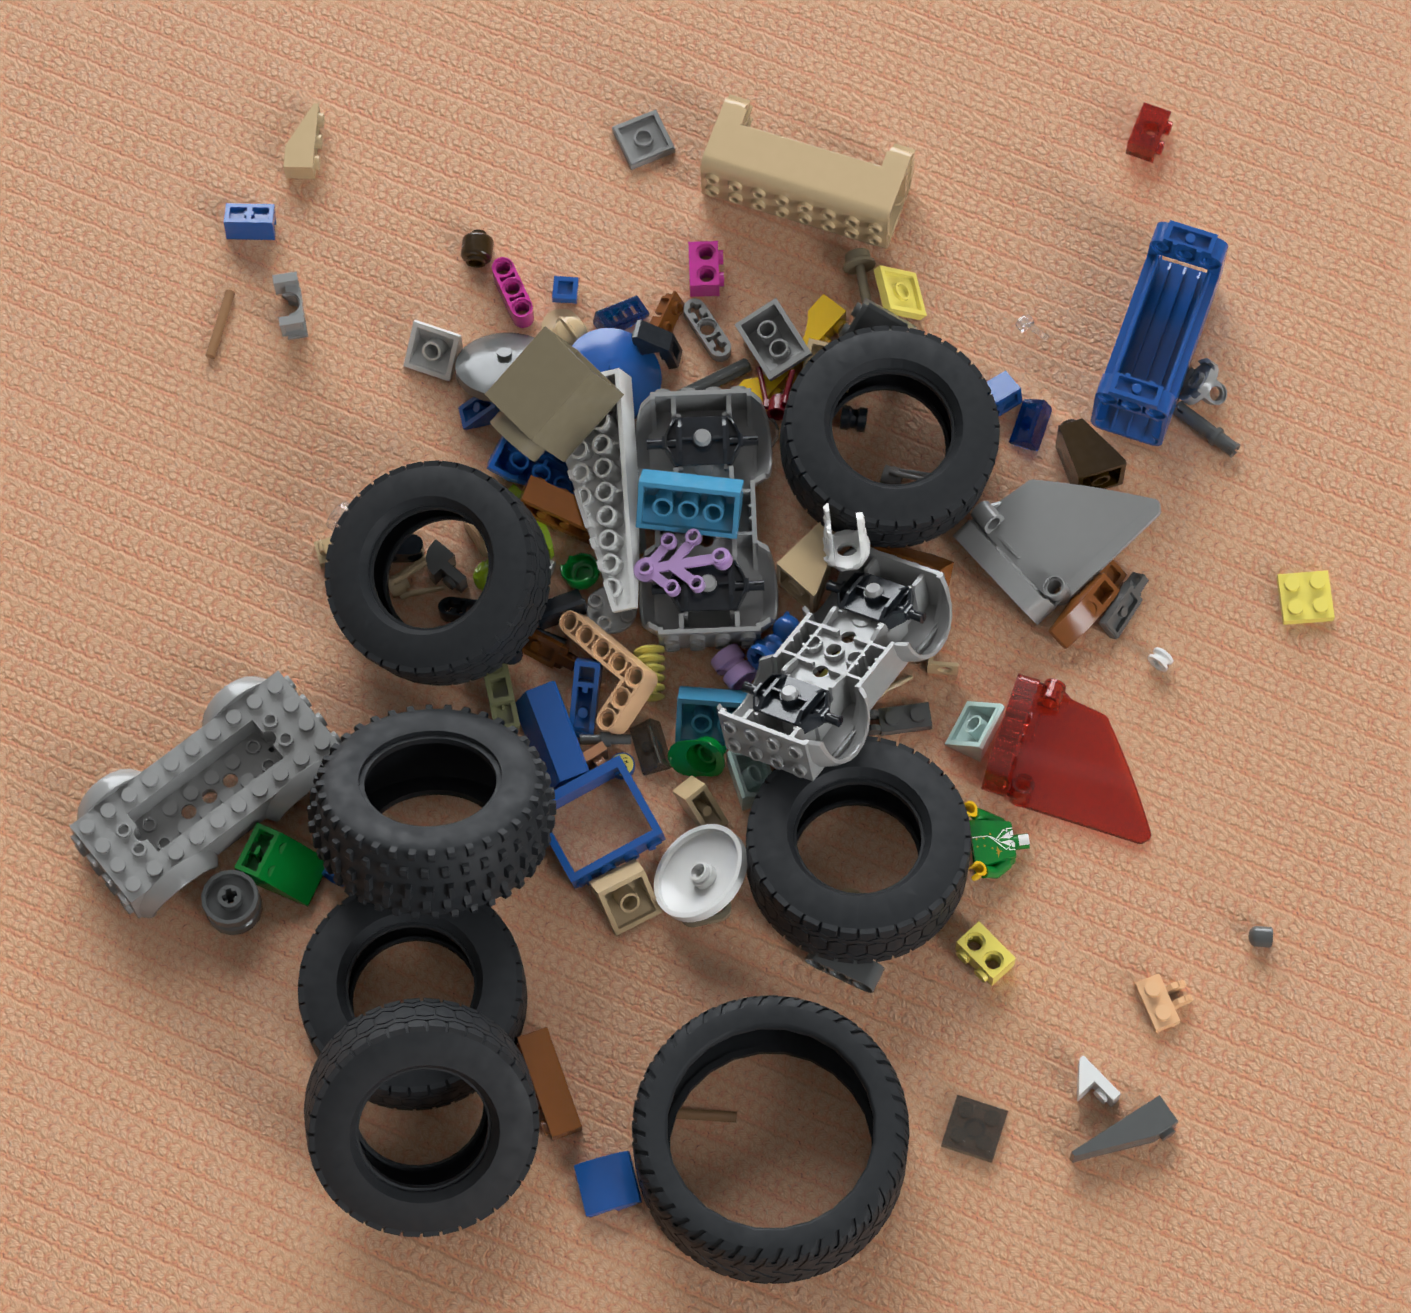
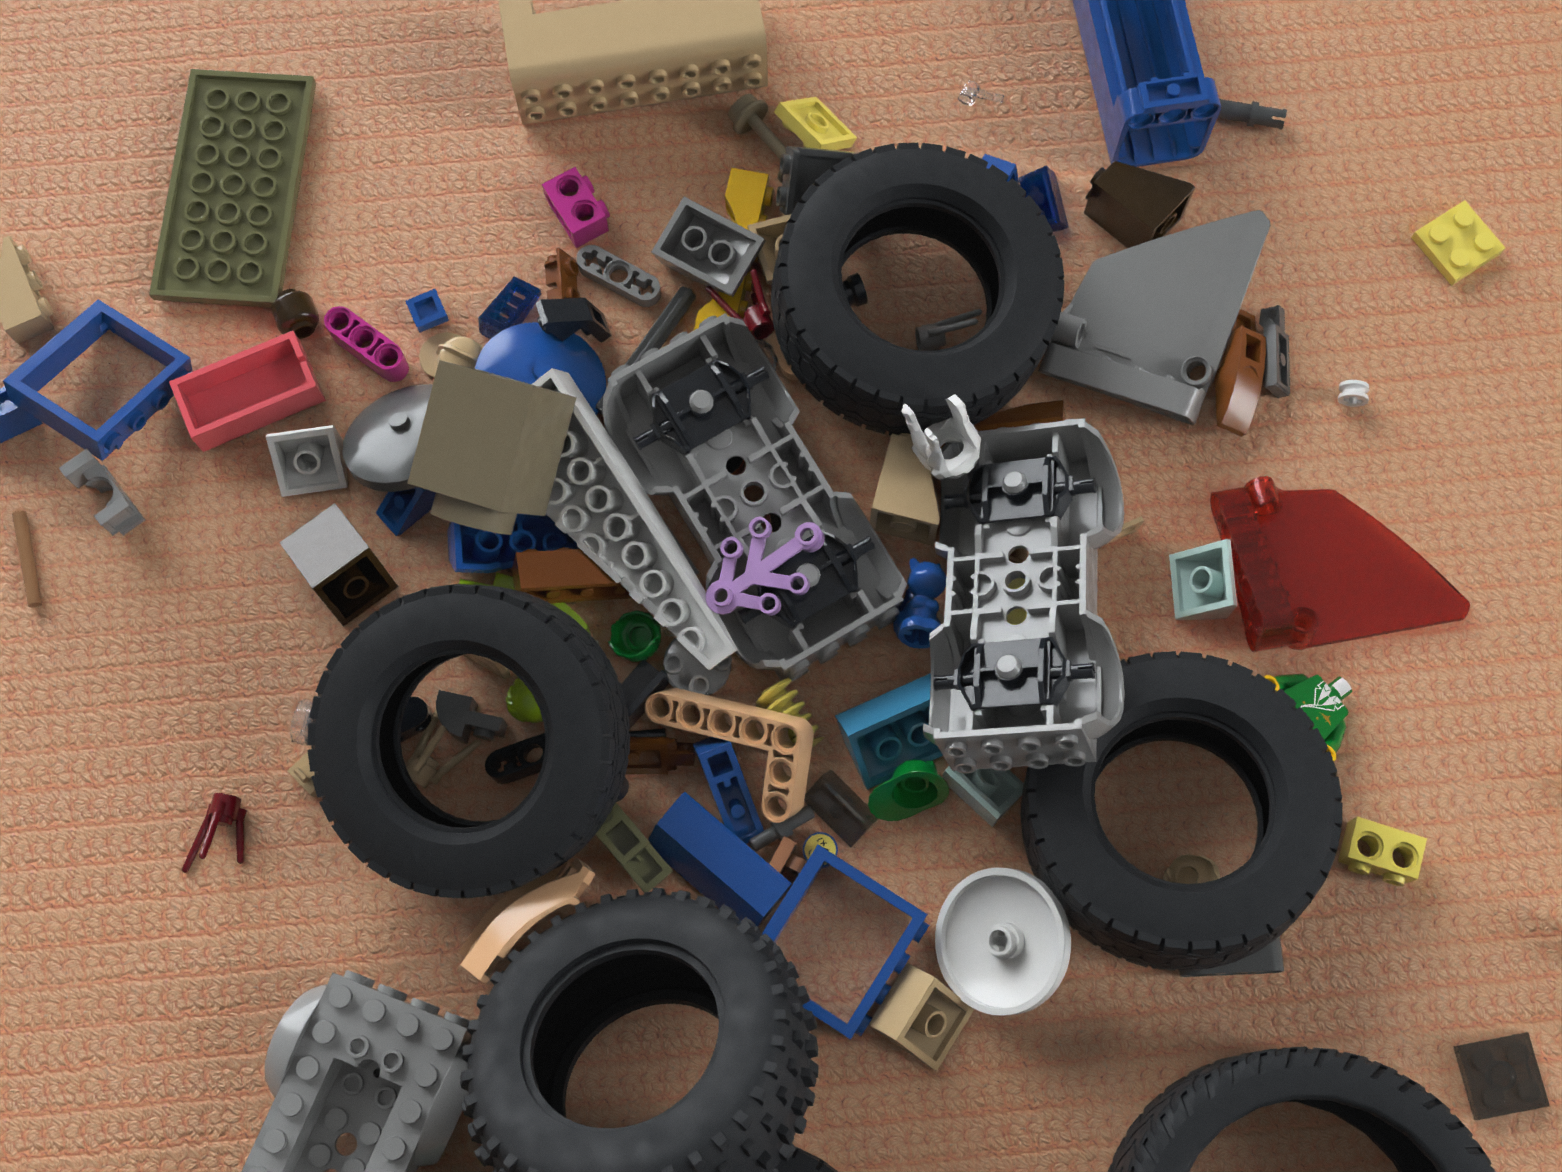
camera: 30 degrees left, 5 degrees up
(259, 547) = (222, 812): none -> dark red plant
(317, 197) = (64, 348): none -> blue window
(408, 695) = (518, 913): none -> light nougat wedge
(415, 426) = (338, 564): none -> slope
(418, 285) = (247, 391): none -> coral piece
(483, 141) = (233, 188): none -> olive plate
(643, 139) = (421, 97): light grey tile -> none
(689, 502) = (732, 488): dark azure slope -> none
(699, 802) = (943, 849): tan slope -> none
(732, 665) = (885, 658): lavender wheel -> none
(901, 719) = (1122, 607): dark grey hinge -> none
(1200, 382) = (1215, 56): light grey tile -> none

